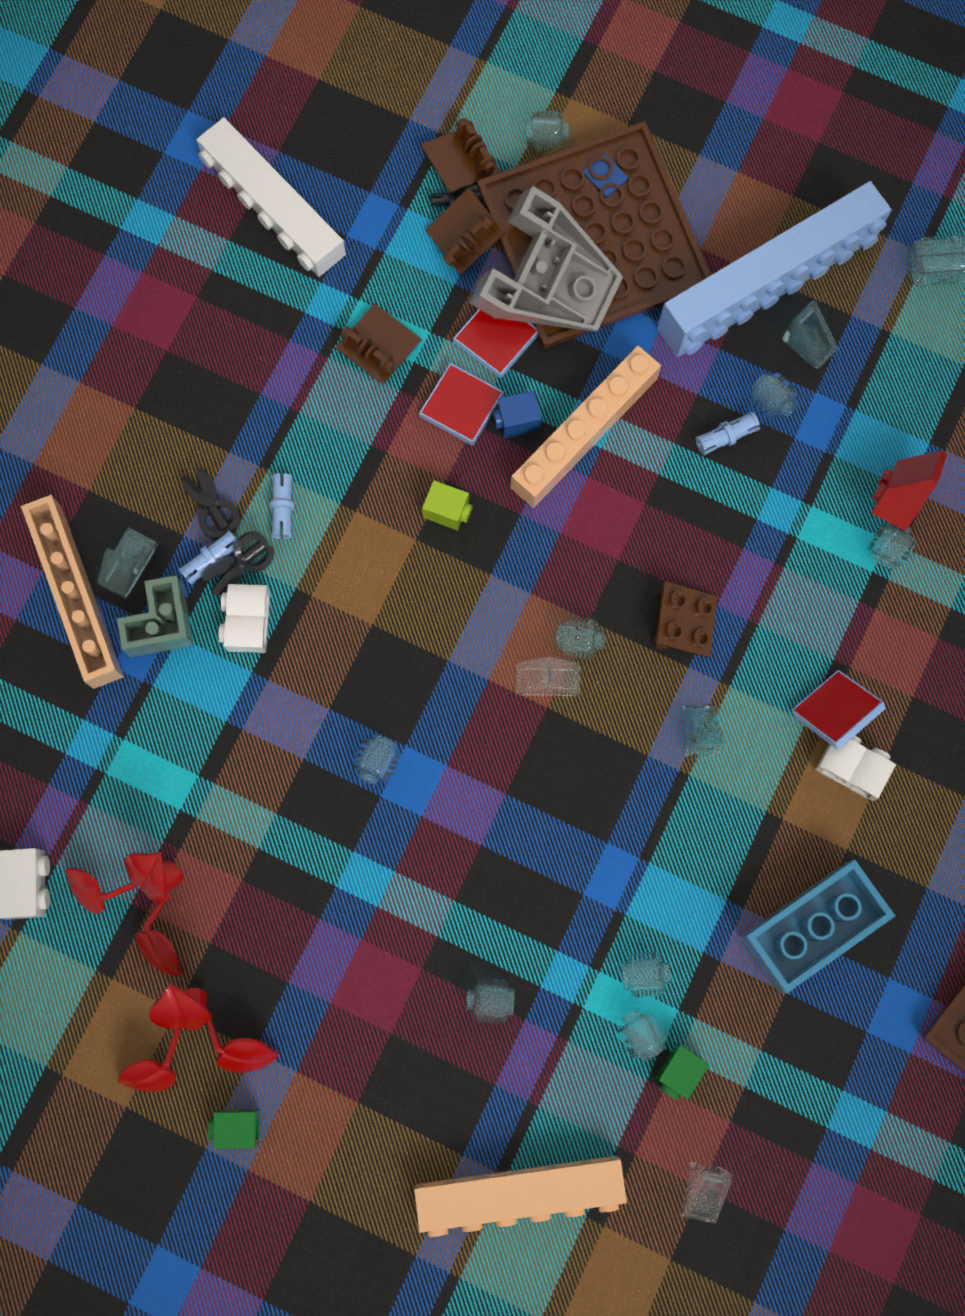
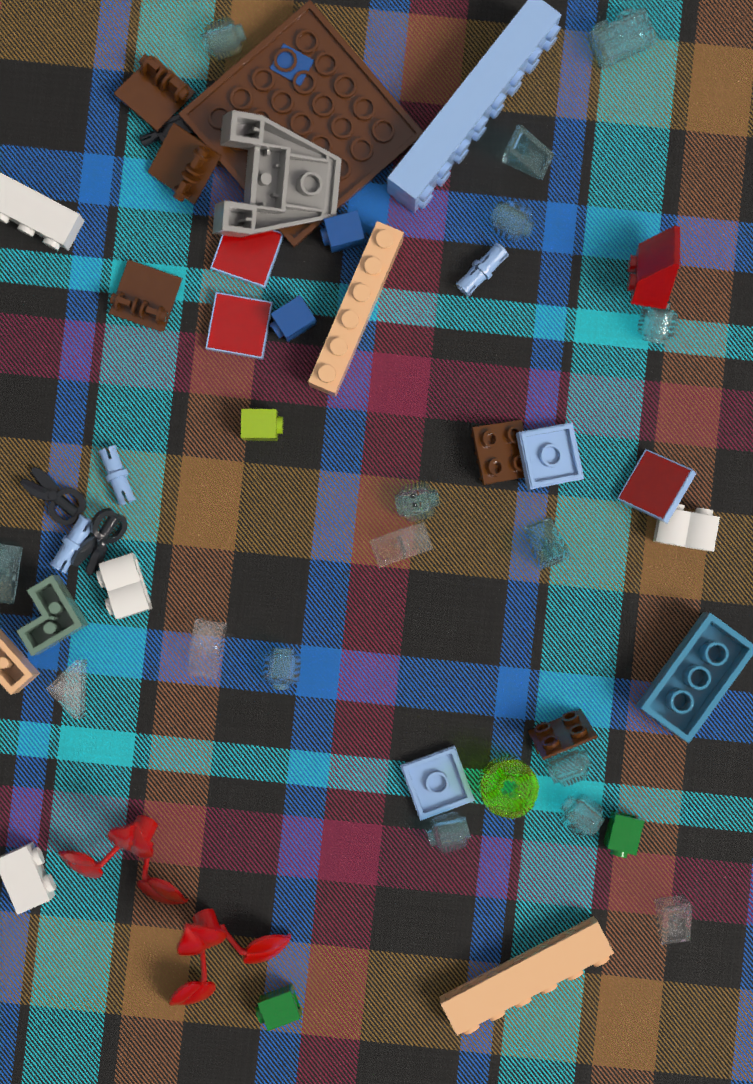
camera: 20 degrees left, 10 degrees up
(149, 702) = (70, 689): none -> clear slope
(306, 710) = (206, 648): none -> clear slope
(497, 943) = (437, 782): none -> light blue tile
(587, 985) = (524, 791): none -> clear neon green brick
(599, 348) = (343, 231): none -> blue brick
(662, 935) = (562, 734): none -> reddish brown hinge
(735, 641) = (549, 456): none -> light blue tile

